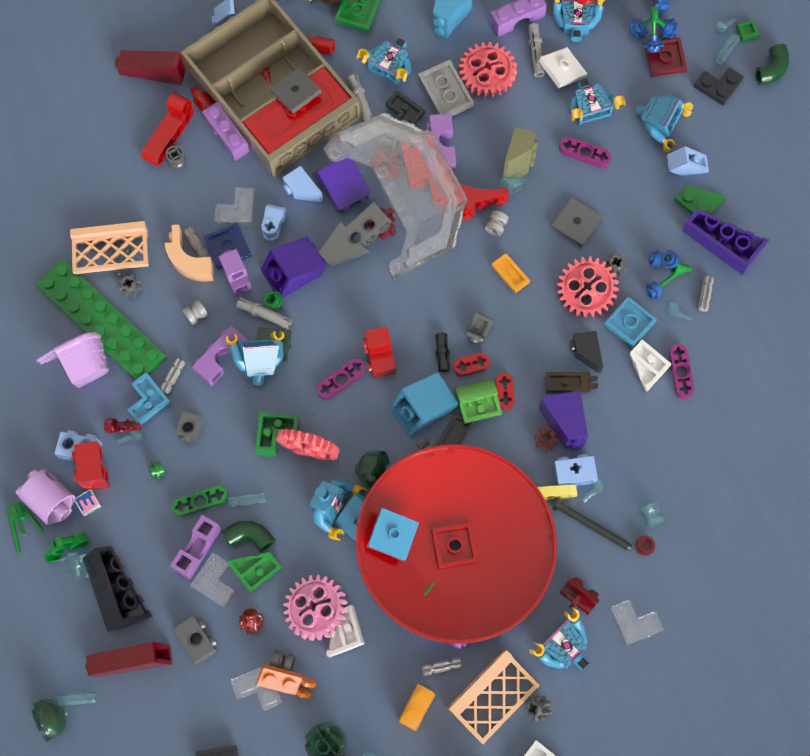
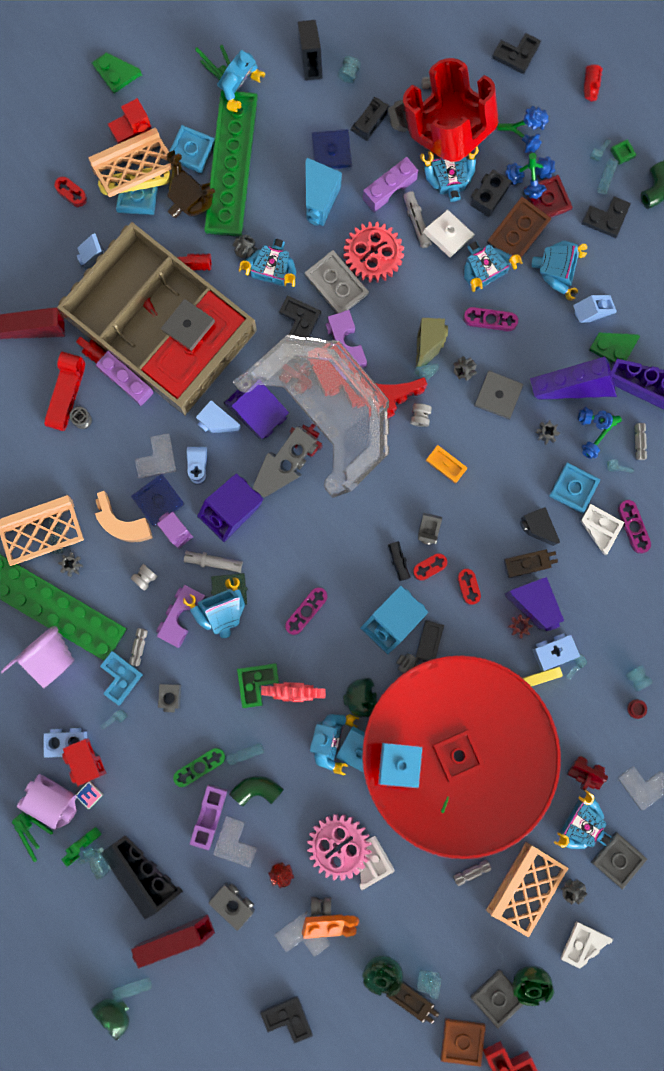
camera: 20 degrees left, 10 degrees up
(112, 425) = (93, 712): dark red piece -> none
(156, 470) = (148, 747): green plate -> none
(195, 242) = (125, 504): light grey axle -> none
(254, 569) = (270, 823): green wing -> none
(268, 299) = (214, 548): green plate -> none
(359, 92) = (249, 307): light grey pin -> none
(368, 39) = (244, 246): none -> dark grey gear
(379, 348) = (339, 578): red brick -> none
(416, 707) = (459, 920): light orange brick -> none
(478, 401) = (446, 604): bright green brick -> none
(549, 189) = (465, 368): none -> dark grey gear
(576, 274) = (512, 451): coral gear -> none
(591, 524) = (547, 689): pearl dark grey bar -> none
(593, 690) = (619, 860): none -> dark grey tile
(613, 42) = (493, 194): none -> black brick
(631, 76) = (519, 228): none -> reddish brown plate
(652, 221) = (578, 381): none -> dark purple wedge

